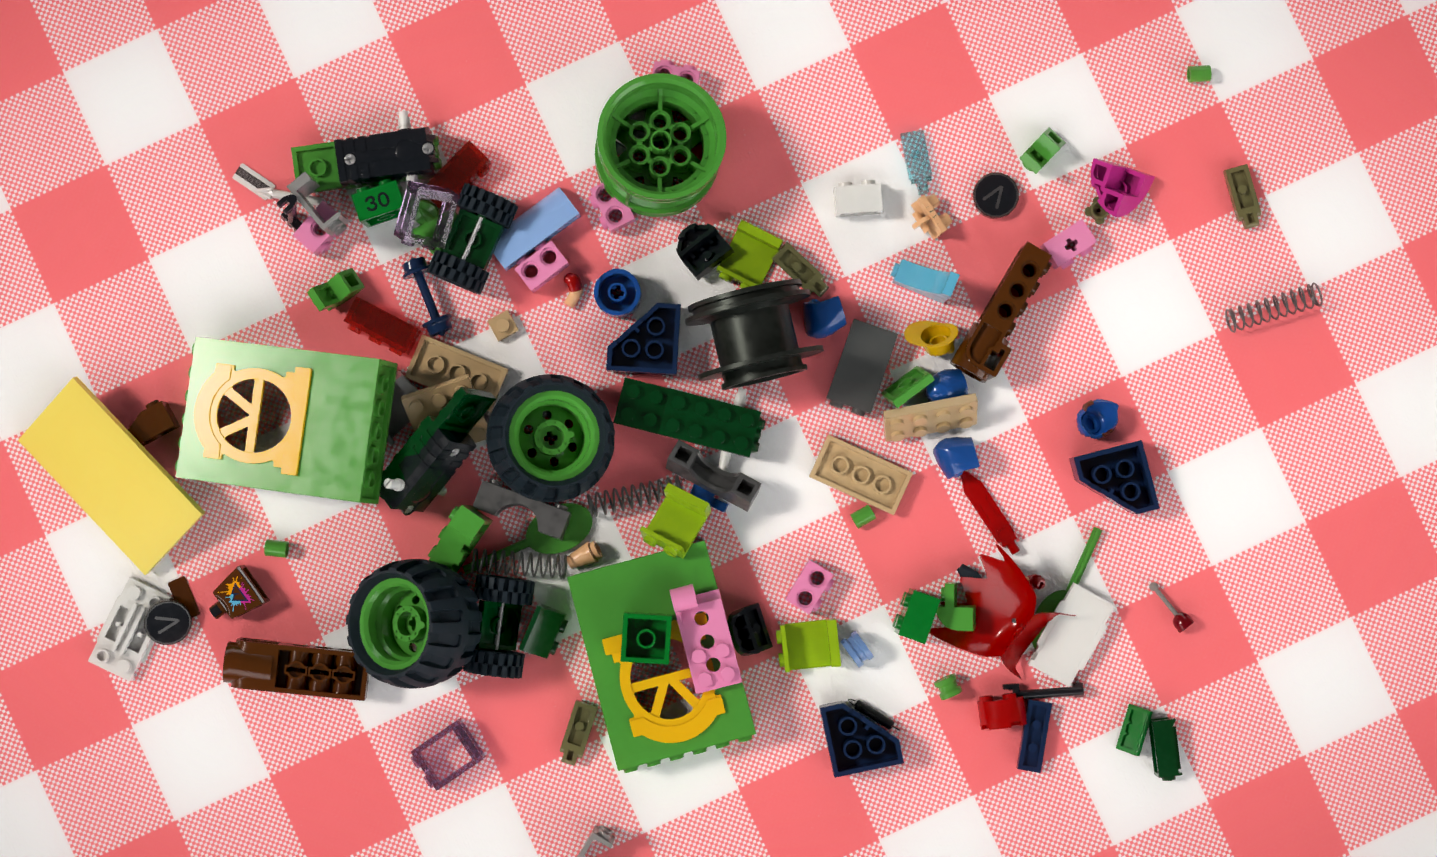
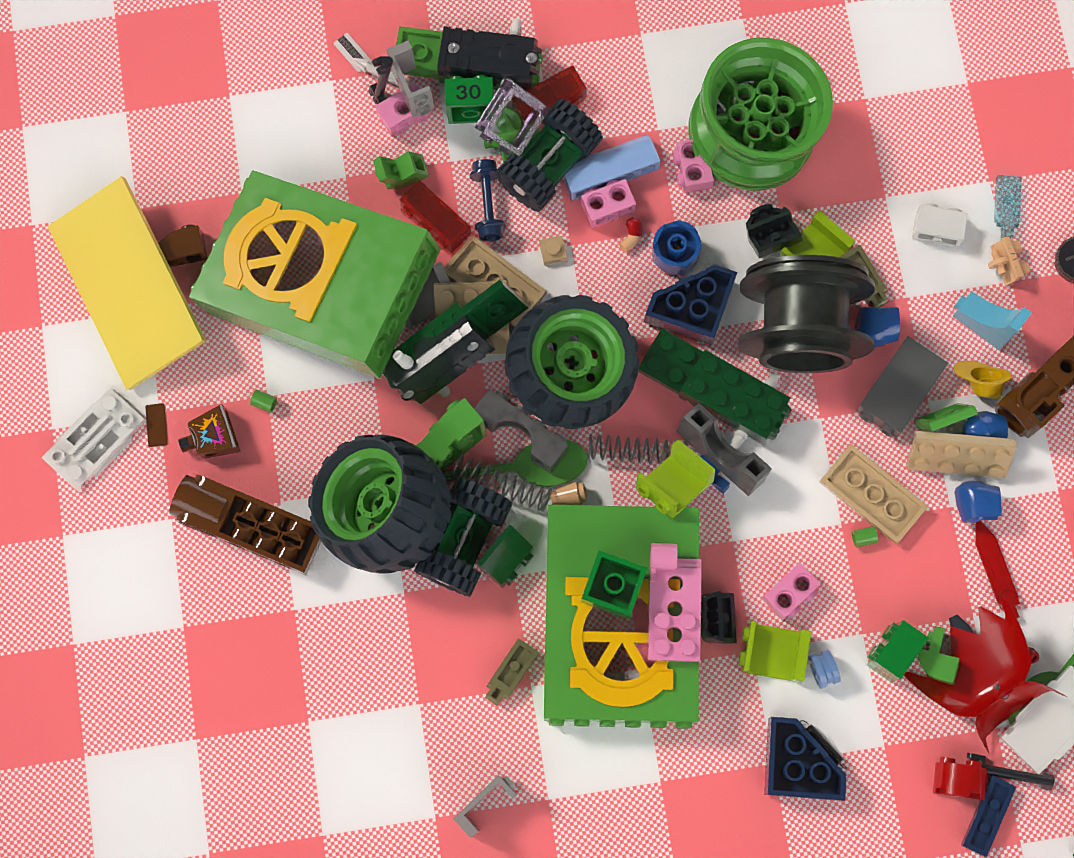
camera: 20 degrees right, 10 degrees down
(167, 621) = (133, 440): black tile -> none
(467, 741) = (395, 648): clear purple window -> none
(948, 686) = (909, 737): bright green wheel -> none

